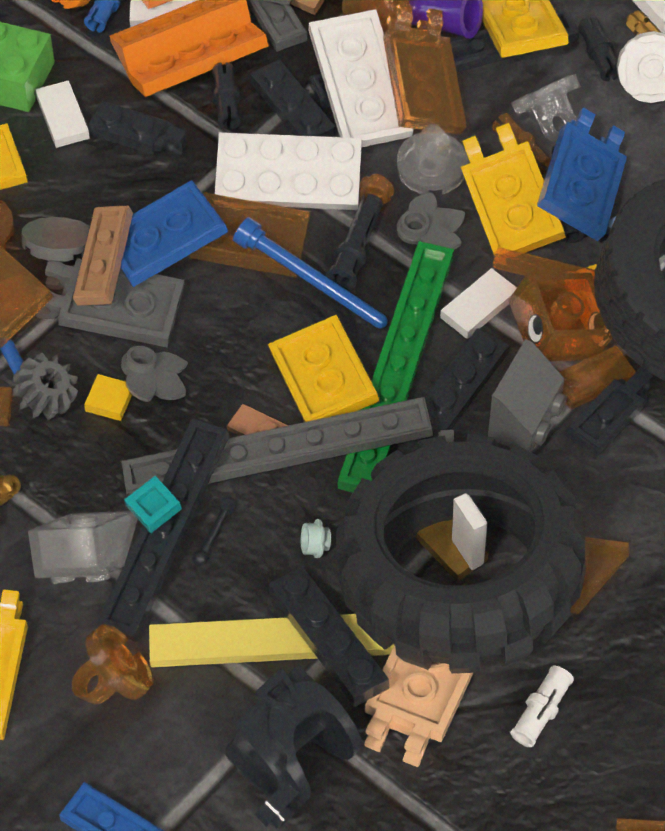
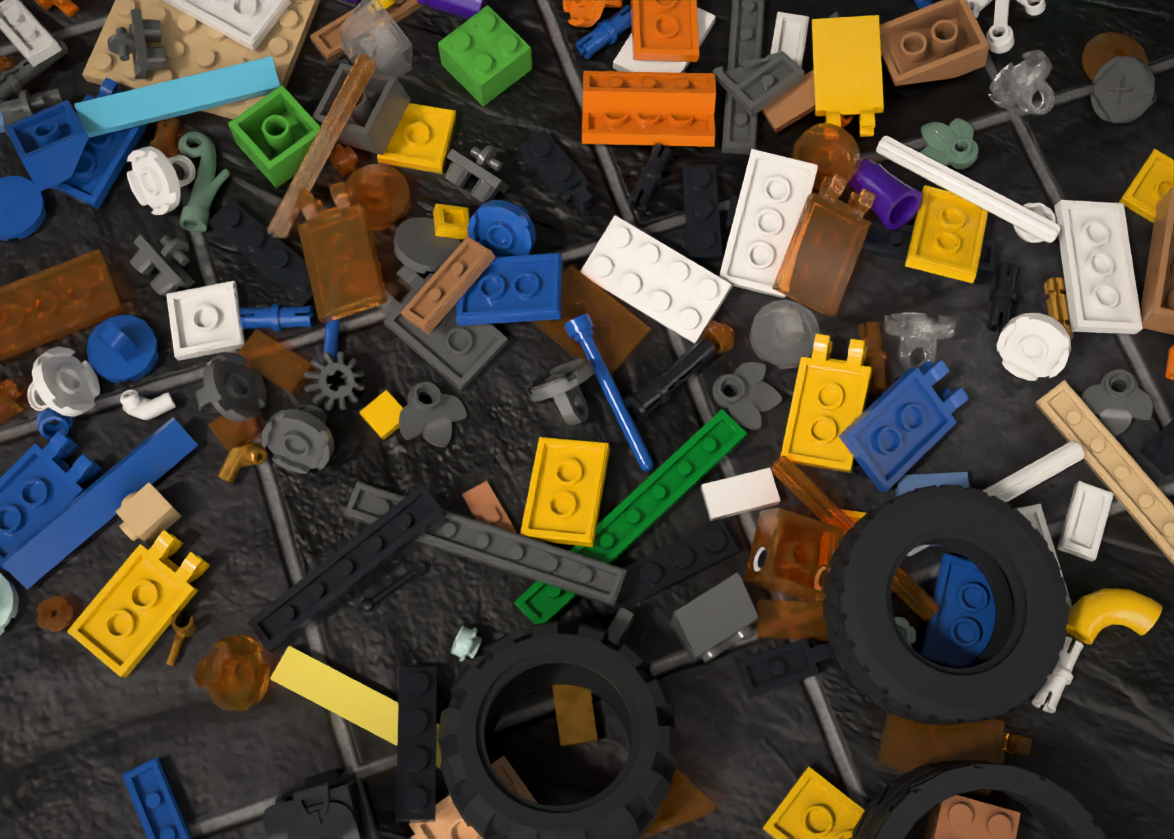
camera: 30 degrees right, 15 degrees up
(35, 670) = (180, 635): none -> pearl gold hand
(46, 447) = (299, 438): none -> dark grey tile
(62, 114) = (507, 122): white tile -> none
(64, 155) = (462, 168): none -> dark grey hips
(66, 210) = (451, 221): none -> yellow tile
(82, 545) = (275, 546): clear slope -> none
(123, 184) = (503, 228): none -> blue tile
(153, 504) = (342, 548): teal plate -> none
(261, 284) = (565, 389): none -> dark grey tile
(469, 531) = (581, 724): white tile -> none

